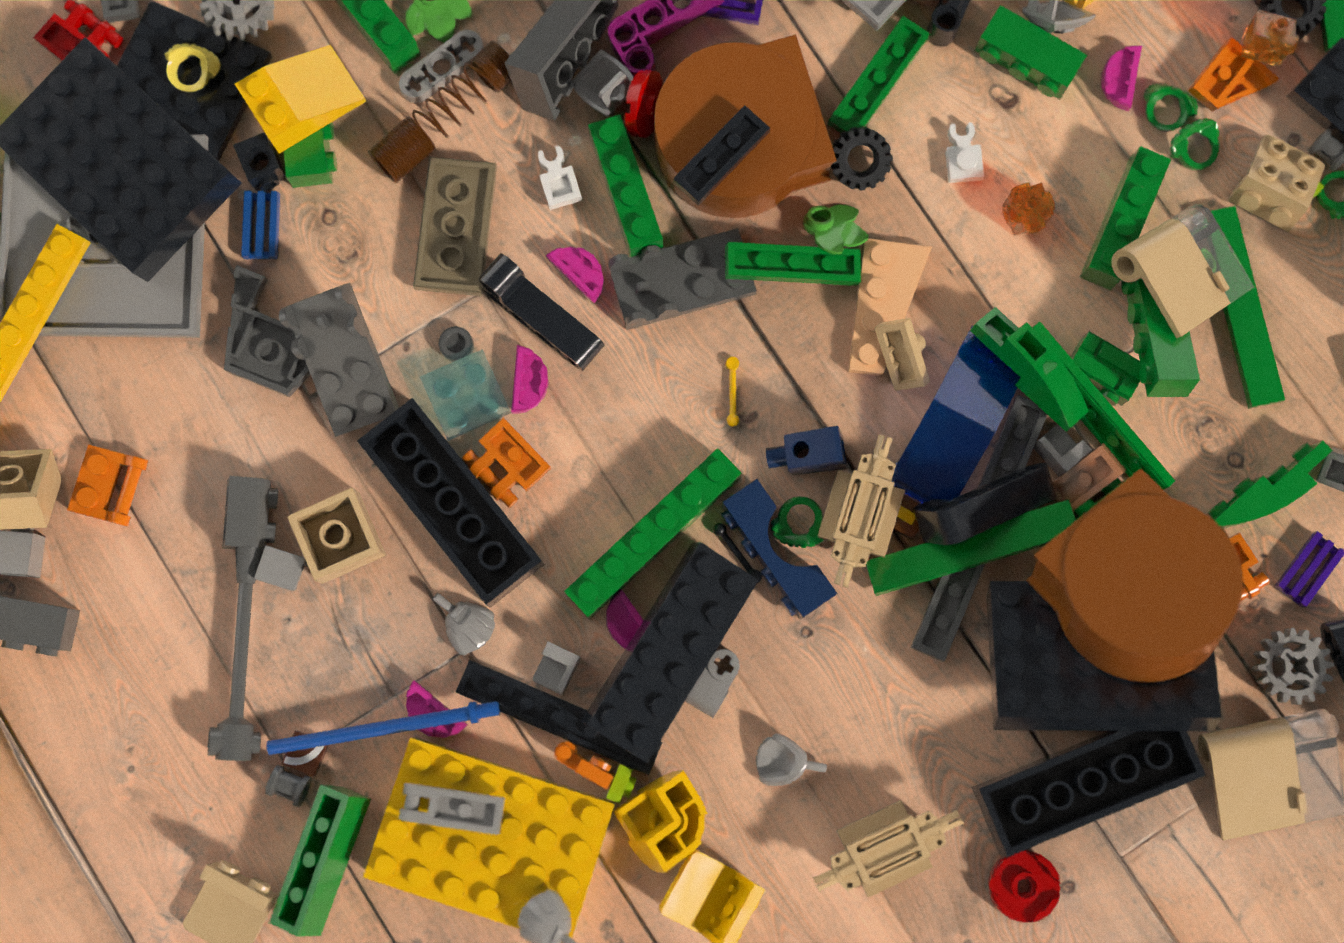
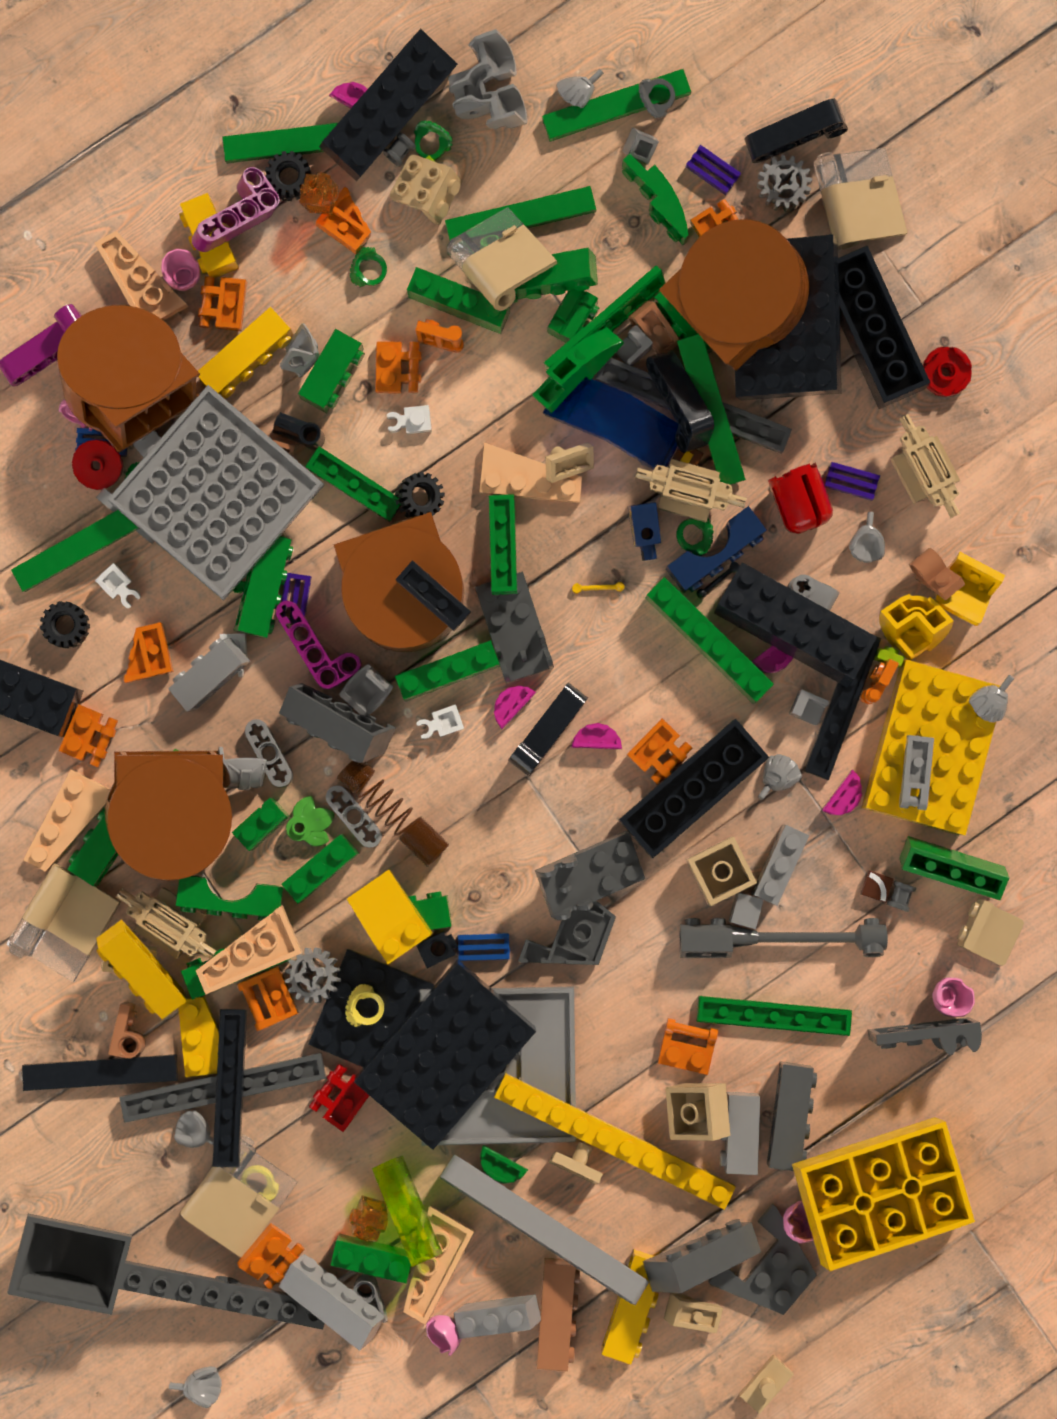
camera: 85 degrees left, 5 degrees up
(96, 827) = (944, 1034): none -> dark grey hinge
(140, 605) = (774, 1015): none -> green tile
(141, 851) = (953, 997): none -> bright pink hair
(341, 617) = (780, 864): none -> light grey brick
(455, 226) = (480, 798): dark tan plate -> none
(456, 343) = (570, 793): dark grey tile -> none
(465, 395) = (609, 784): clear light blue plate -> none
(472, 713) = (845, 765): blue bar -> none
(643, 97) = (383, 658): red plate -> none
(733, 854) = (934, 574): none -> nougat plate
(834, 227) = (474, 512): bright green plate -> none
(845, 668) = (801, 499): none -> red cylinder
(879, 716) = (856, 472): none -> dark purple tile
(1025, 218) = (457, 380): clear orange brick -> none
(1037, 130) = (389, 367): none -> orange plate
(1075, 193) = (444, 338): none -> orange plate
(1120, 76) = (346, 304): dark pink plate -> none
(1179, 144) = (398, 260): green piece -> none

